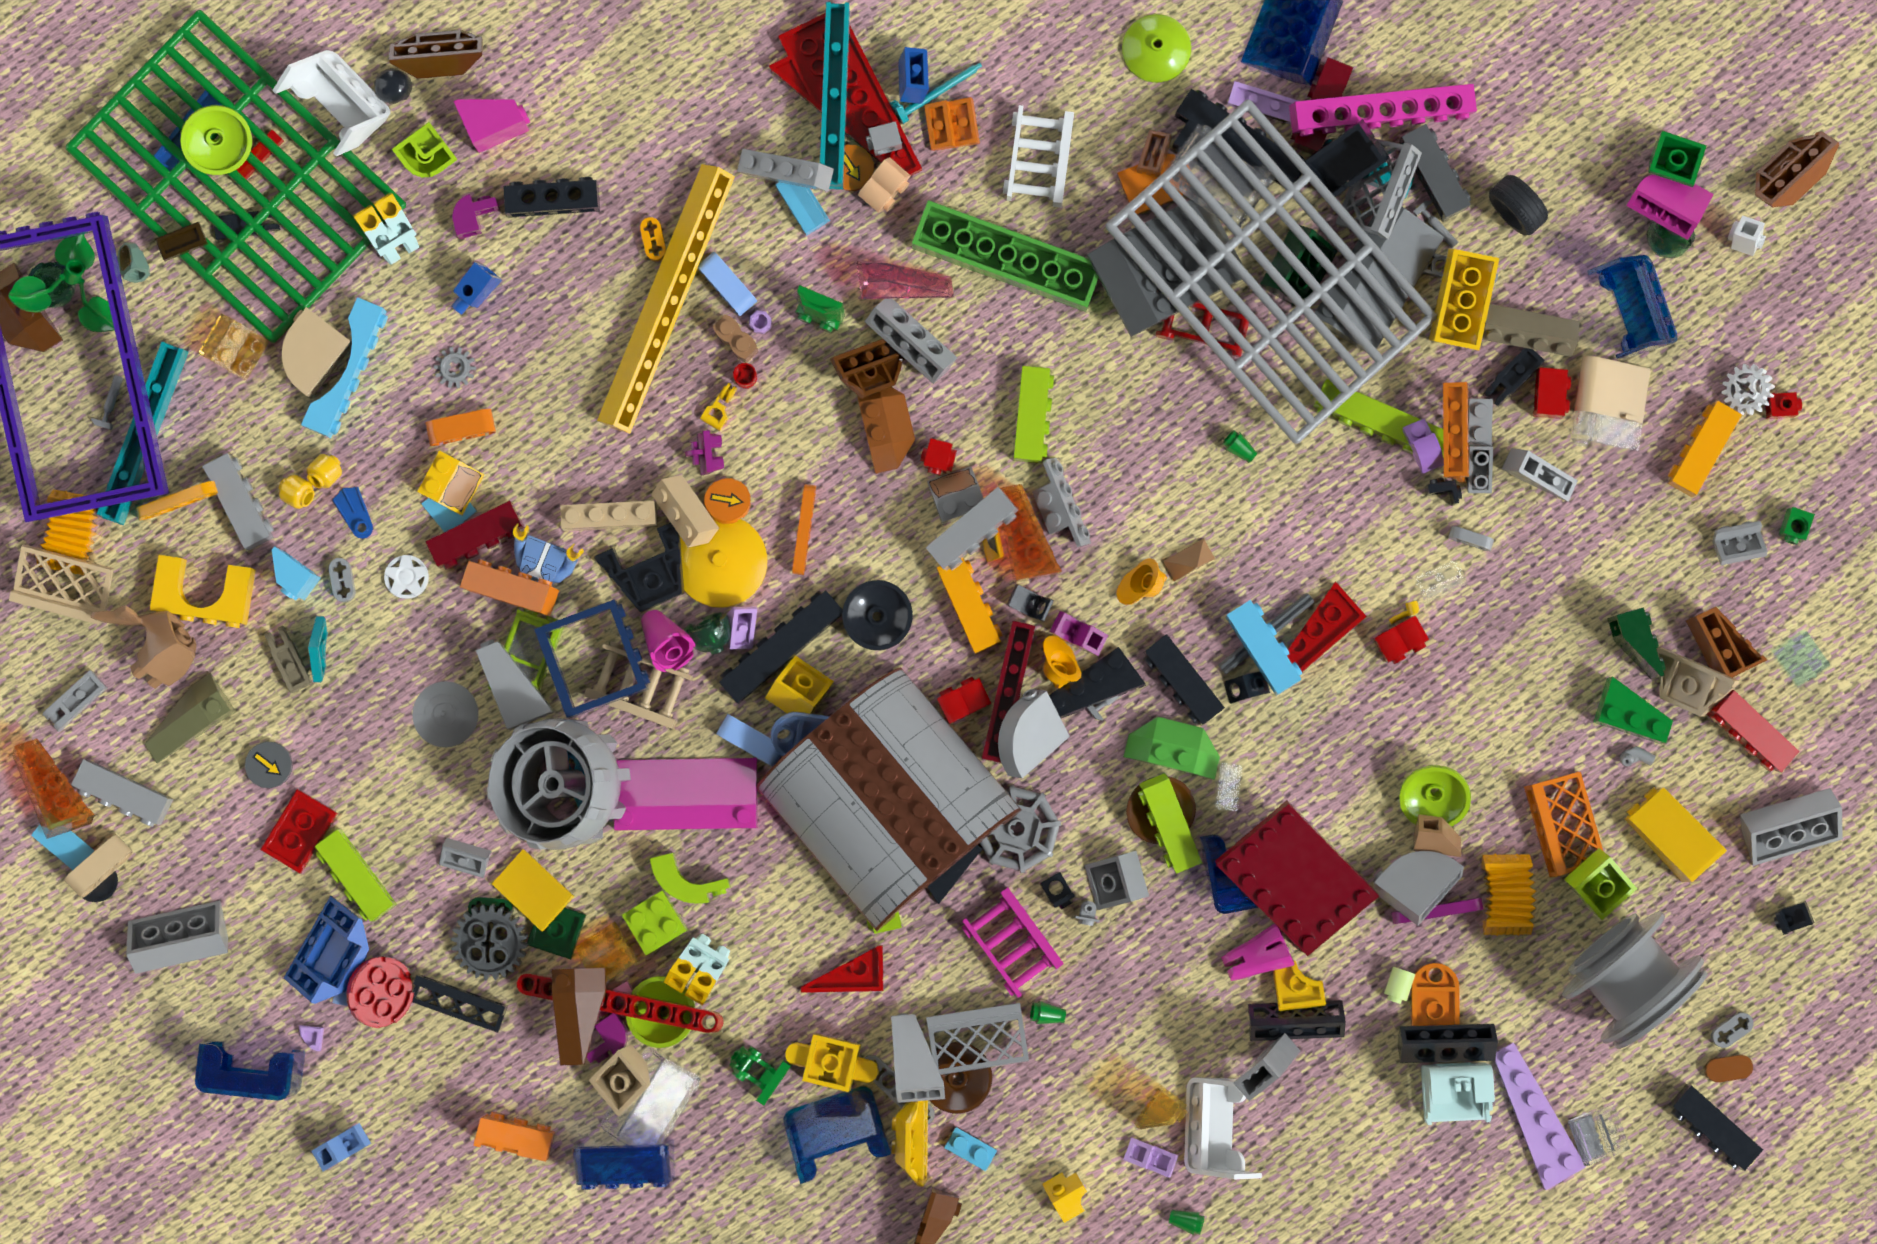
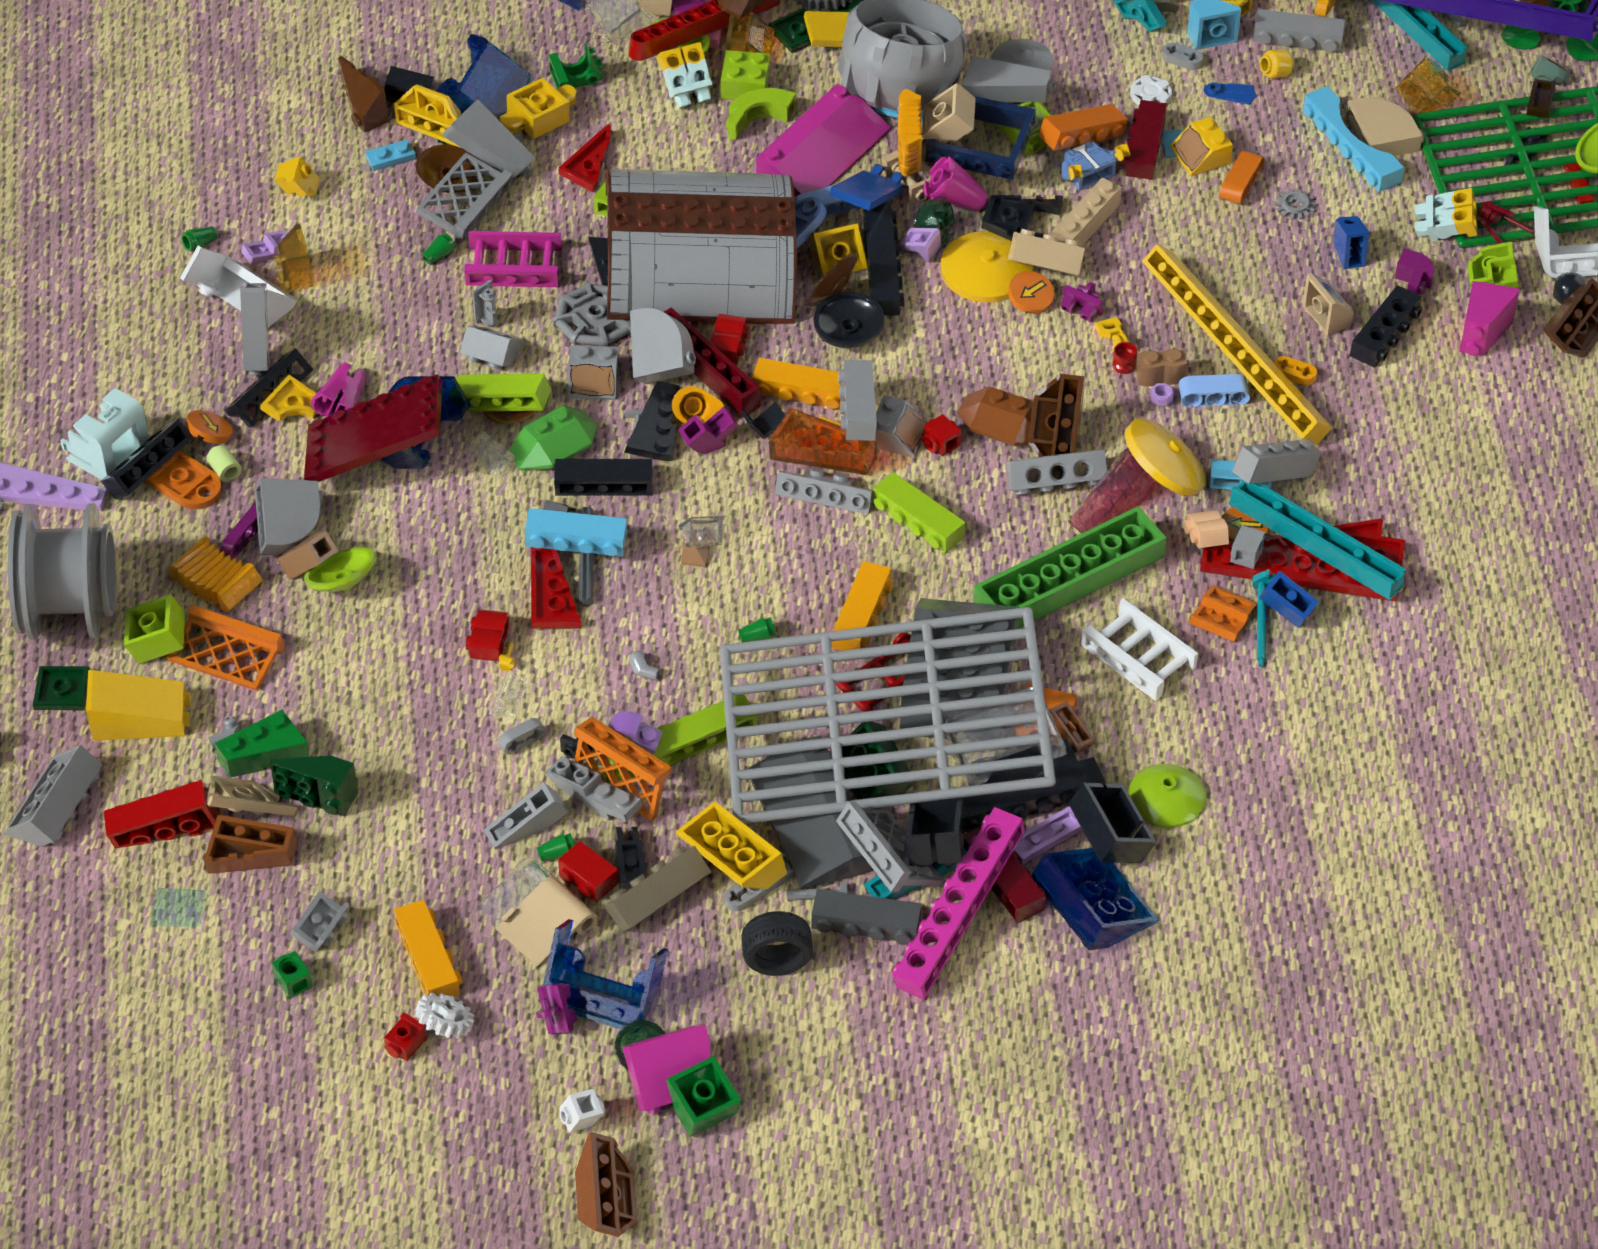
camera: 125 degrees right, 35 degrees down
(324, 471) = (1278, 85): yellow head -> none
(359, 193) = (1492, 213): none -> dark red plant
(566, 255) = (1326, 305): none -> tan slope
(606, 687) = (949, 114): none -> tan slope
(644, 710) = (909, 133): none -> light orange piece
(720, 708) = (868, 188): none -> blue tile
(804, 529) = (963, 323): orange beam -> none
(819, 309) = (1140, 399): green slope -> none
(844, 257) = (1165, 457): none -> yellow dish
(851, 653) = (834, 280): none -> reddish brown hat
(889, 1196) = (402, 80): none -> black brick
(1062, 899) = (514, 309): black bracket -> none
(1085, 775) = (593, 372): none -> slope
(1141, 582) = (707, 497): light orange piece -> none
(1159, 385) = (864, 603): none -> light orange brick
(1185, 556) = (702, 531): none -> clear slope
(1228, 64) = (1110, 823): none -> black piece
(1338, 507) = (640, 666): none -> light grey arm
(1376, 1026) = (208, 425): none -> orange tile
(1545, 431) = (556, 847): none -> green cone
(1685, 316) = (555, 1008): none -> magenta hips
(1692, 915) = (61, 688): none -> dark green tile

